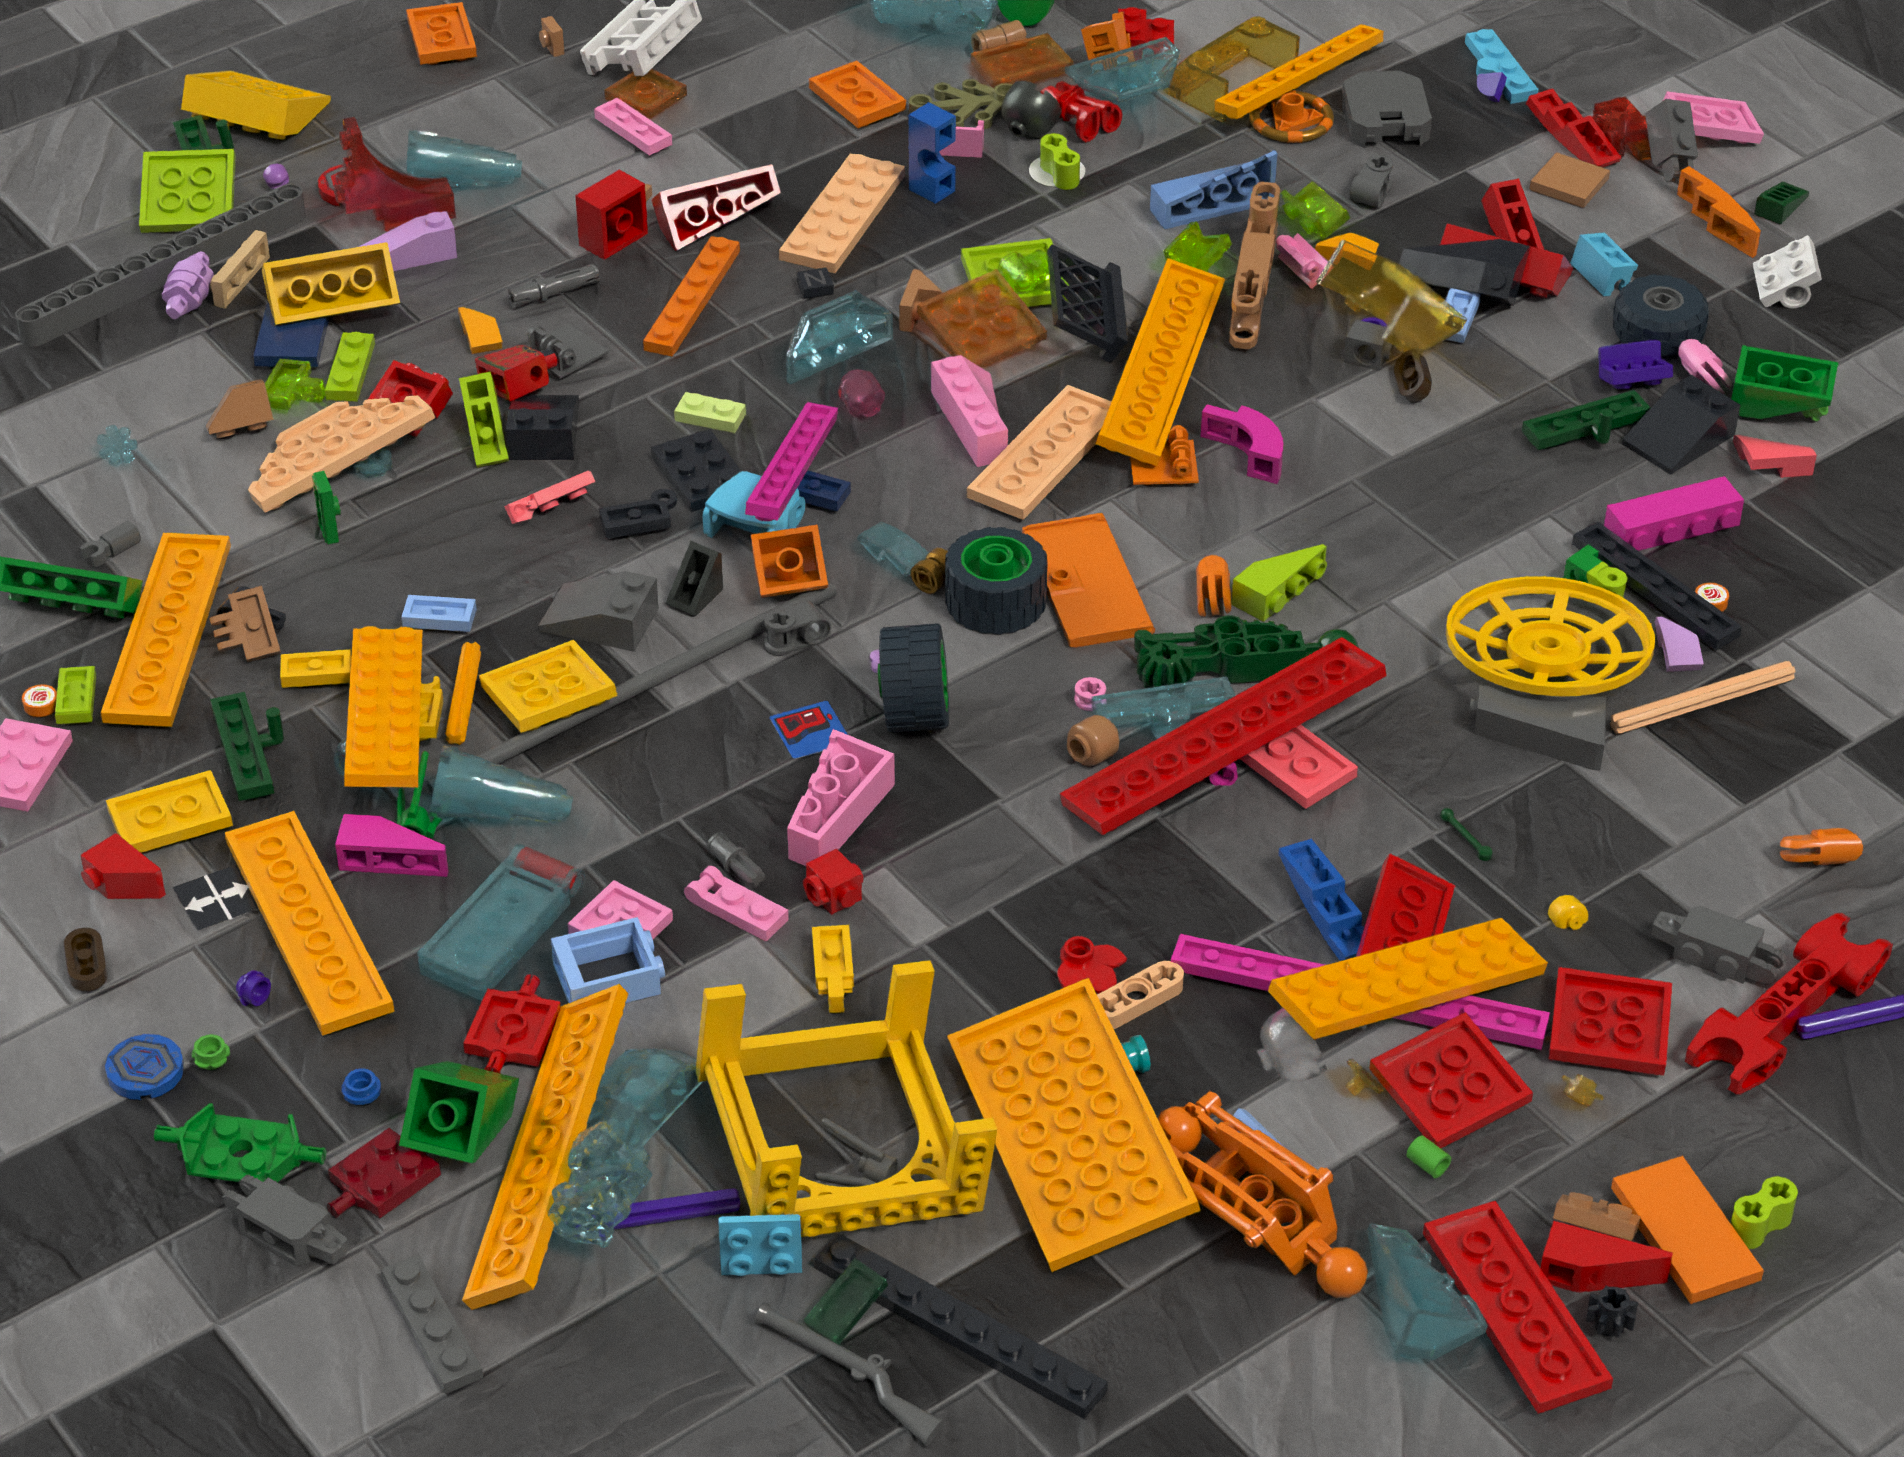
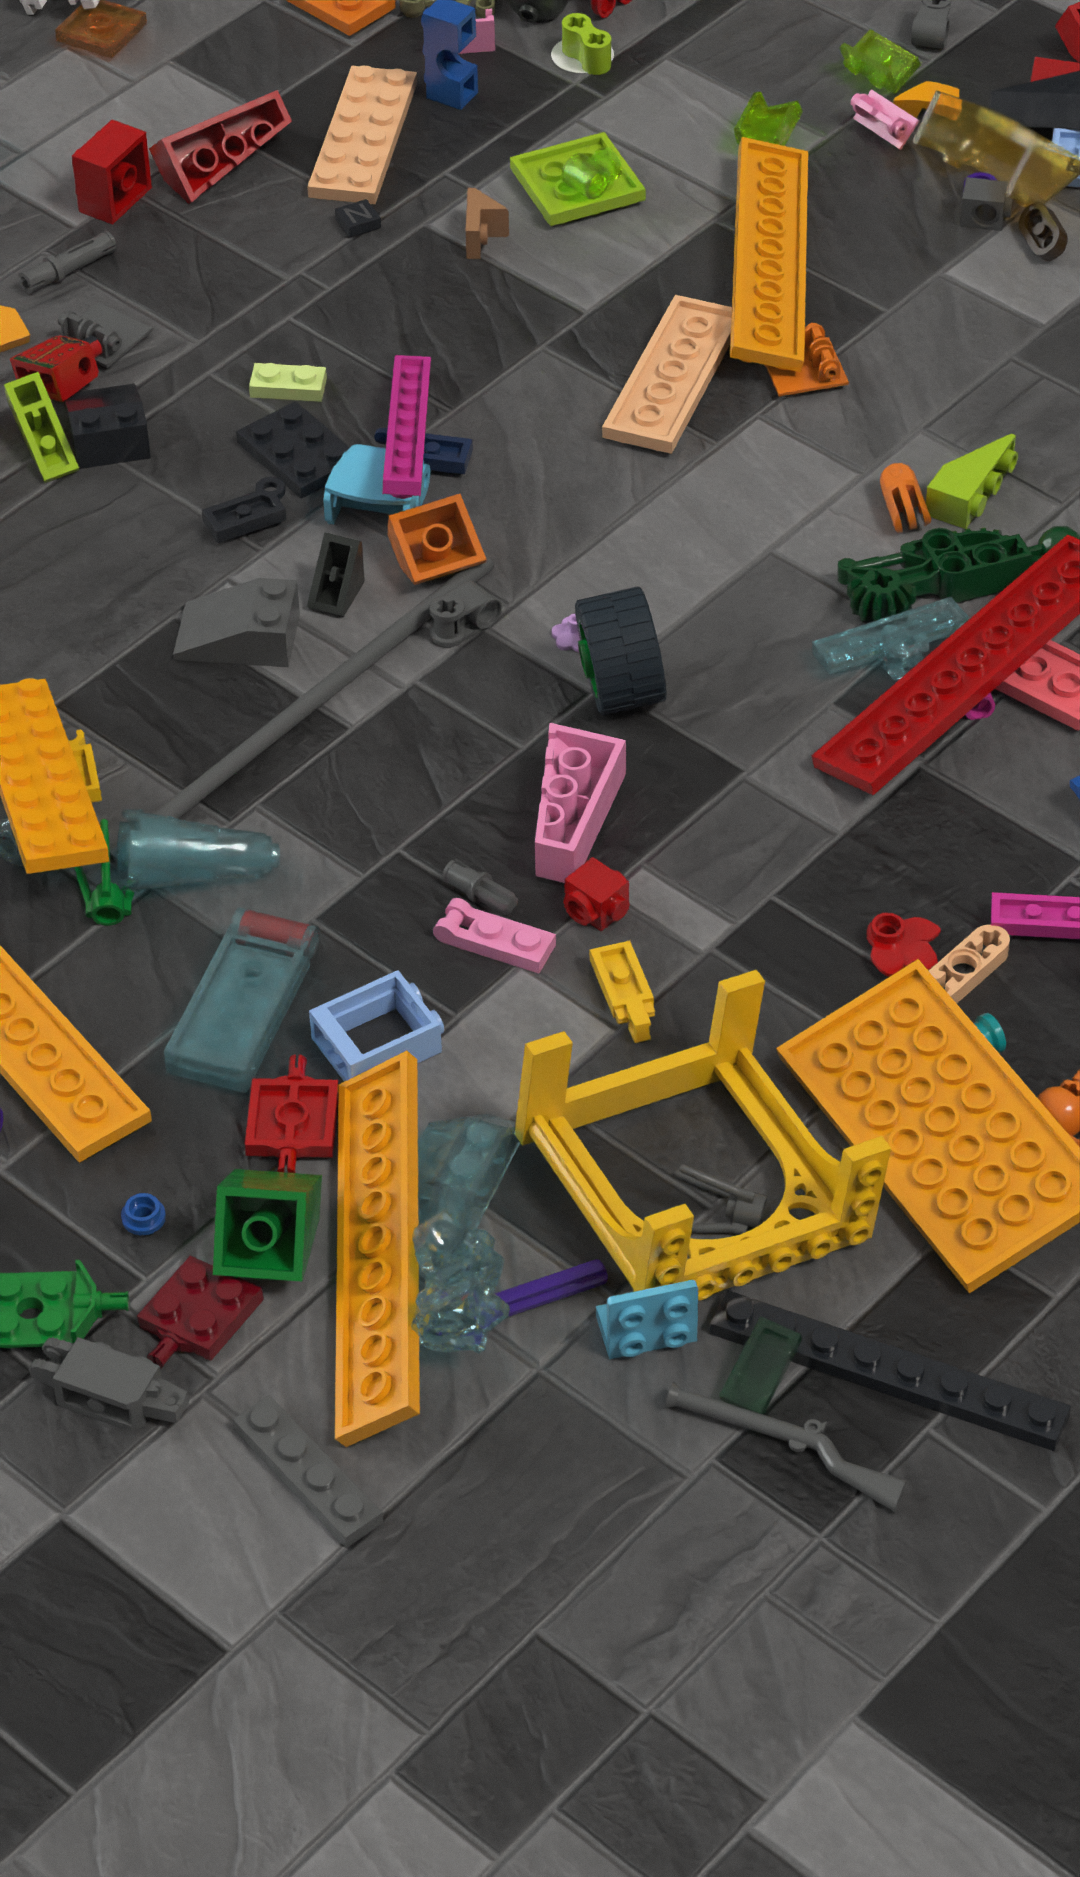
camera: 10 degrees left, 5 degrees up
(383, 846) = (84, 934): dark pink slope -> none
(439, 613) = (58, 656): light blue plate -> none
(463, 693) = (114, 744): light orange axle -> none
(547, 498) = (138, 507): coral hinge -> none
(548, 686) = (210, 722): yellow plate -> none
(620, 904) = (367, 960): bright pink plate -> none
(633, 126) = (99, 67): bright pink plate -> none
(691, 296) = (225, 253): orange plate -> none
(807, 728) = (510, 725): sticker -> none
(836, 334) = (405, 273): clear light blue wedge -> none
(861, 393) = (451, 336): clear pink head -> none
(891, 543) = (534, 500): clear light blue slope -> none
(930, 573) = (595, 525): pearl gold wheel -> none
(970, 406) = (573, 334): bright pink wedge -> none
(982, 320) = (560, 237): clear orange plate -> none
(996, 580) = (669, 526): black wheel -> none
(1085, 689) = (802, 635): bright pink bush -> none
(1089, 581) = (762, 511): orange door -> none
(1093, 740) = (829, 690): medium nougat head -> none
(1107, 304) = (673, 197): black fence -> none
(1211, 192) = (766, 55): medium blue wedge -> none
(1250, 433) = (891, 321): dark pink arch -> none
(1254, 265) = (839, 132): medium nougat piece -> none

